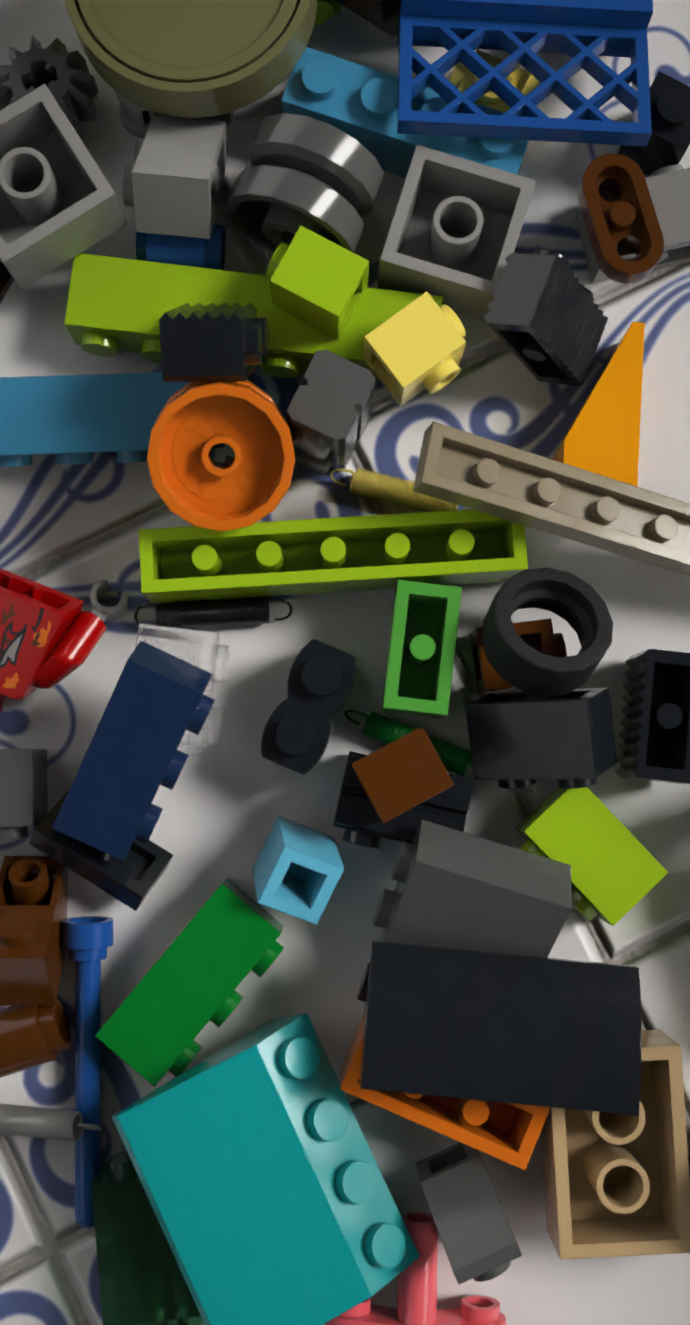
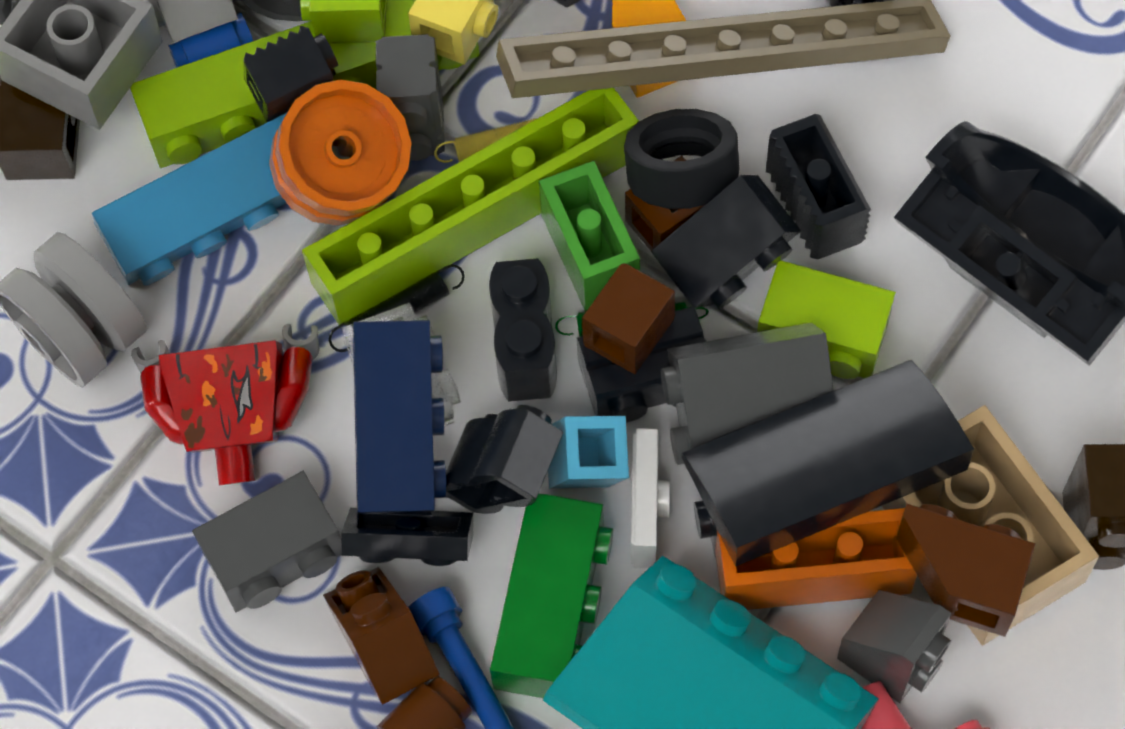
camera: 20 degrees left, 20 degrees down
(214, 840) = (502, 460): none -> black brick
(330, 937) = (649, 498): none -> white plate
(563, 1224) = (966, 566): none -> reddish brown slope

